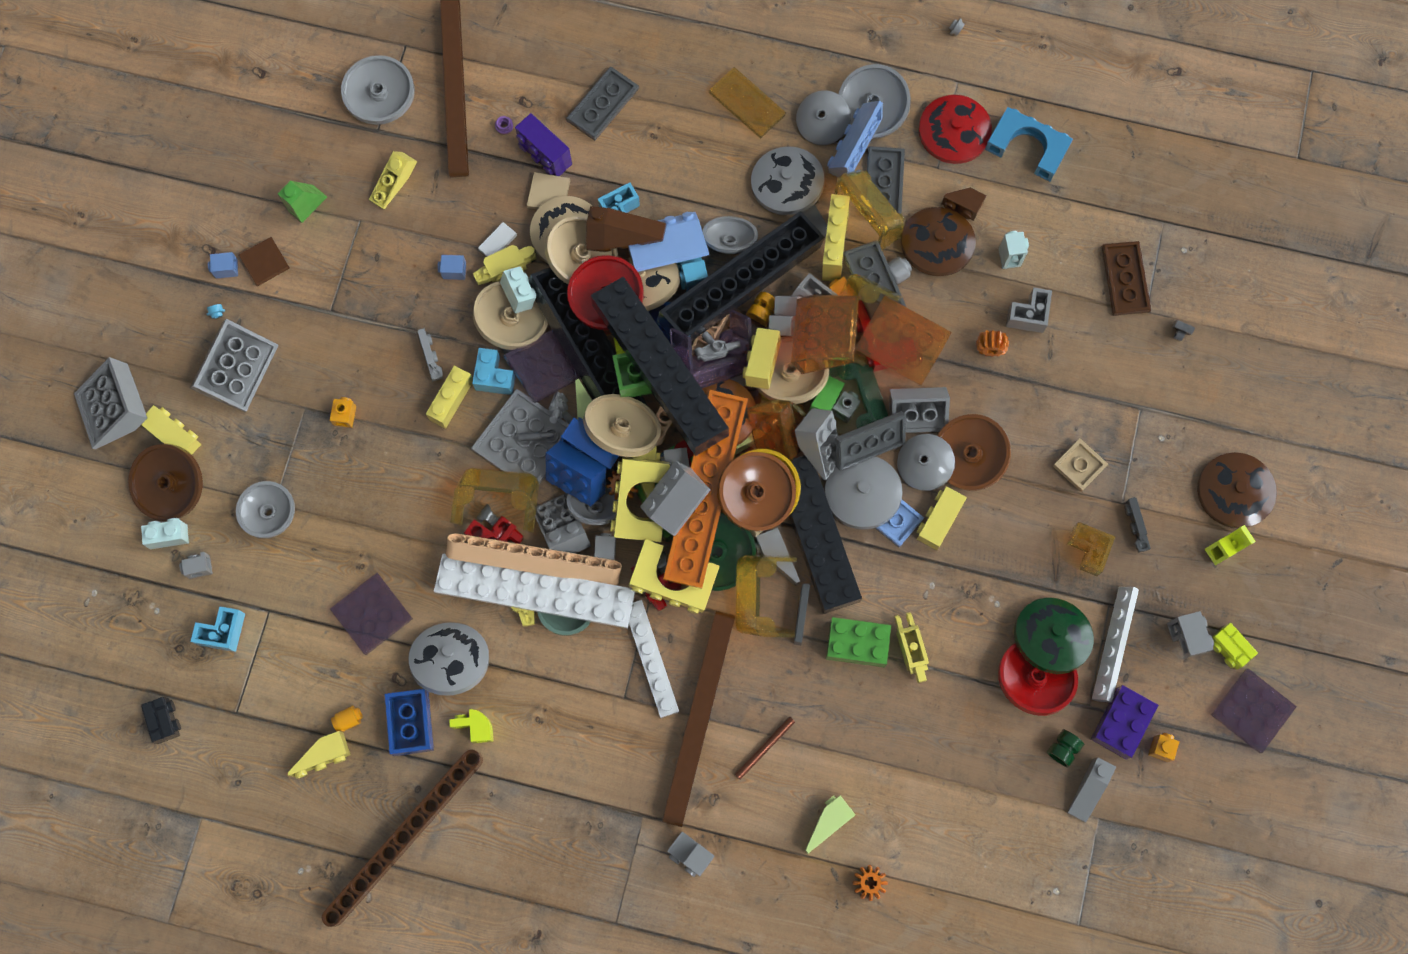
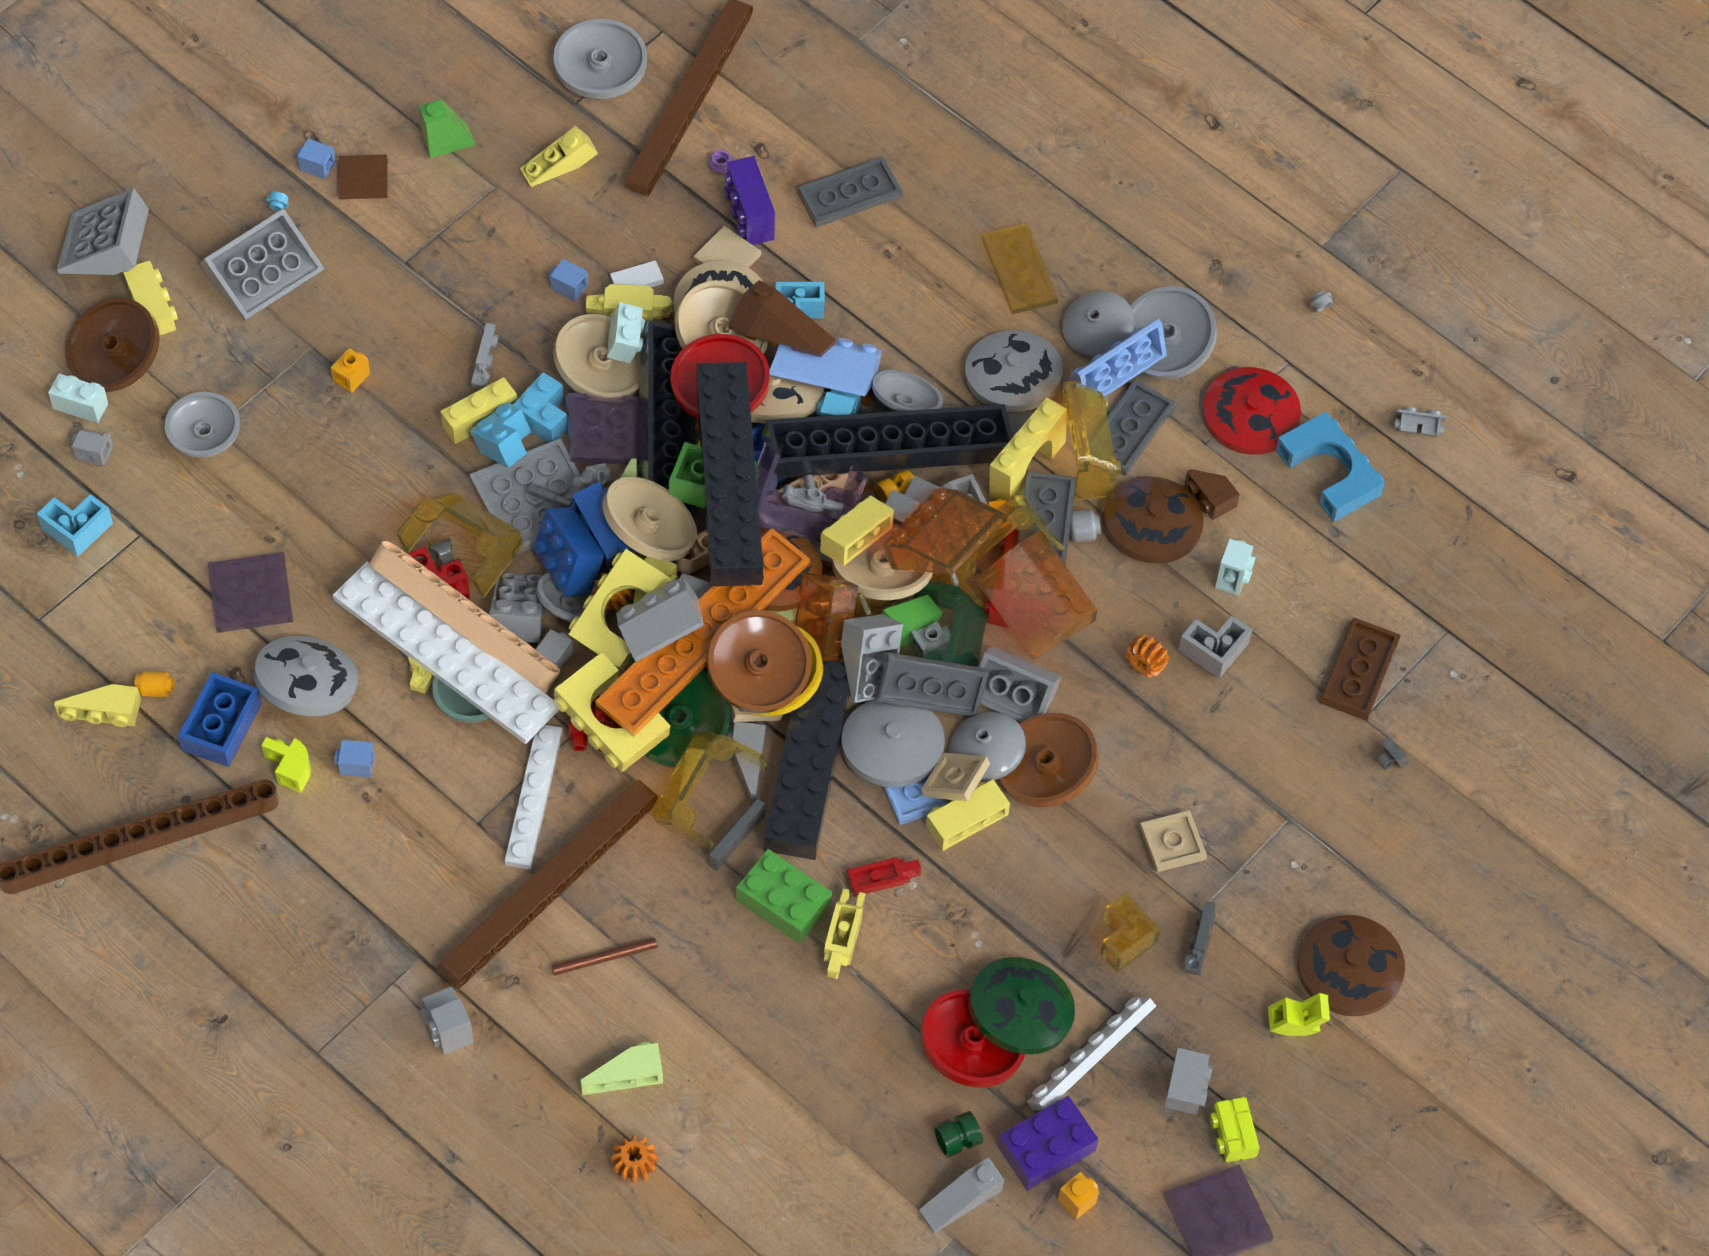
camera: 25 degrees right, 15 degrees down
(475, 408) = (501, 435): none -> medium azure brick
(516, 698) = (355, 758): none -> medium blue brick
(910, 591) = (882, 875): none -> red hinge
(922, 498) = (955, 776): none -> tan plate
(1074, 80) = (1410, 418): none -> light grey hinge

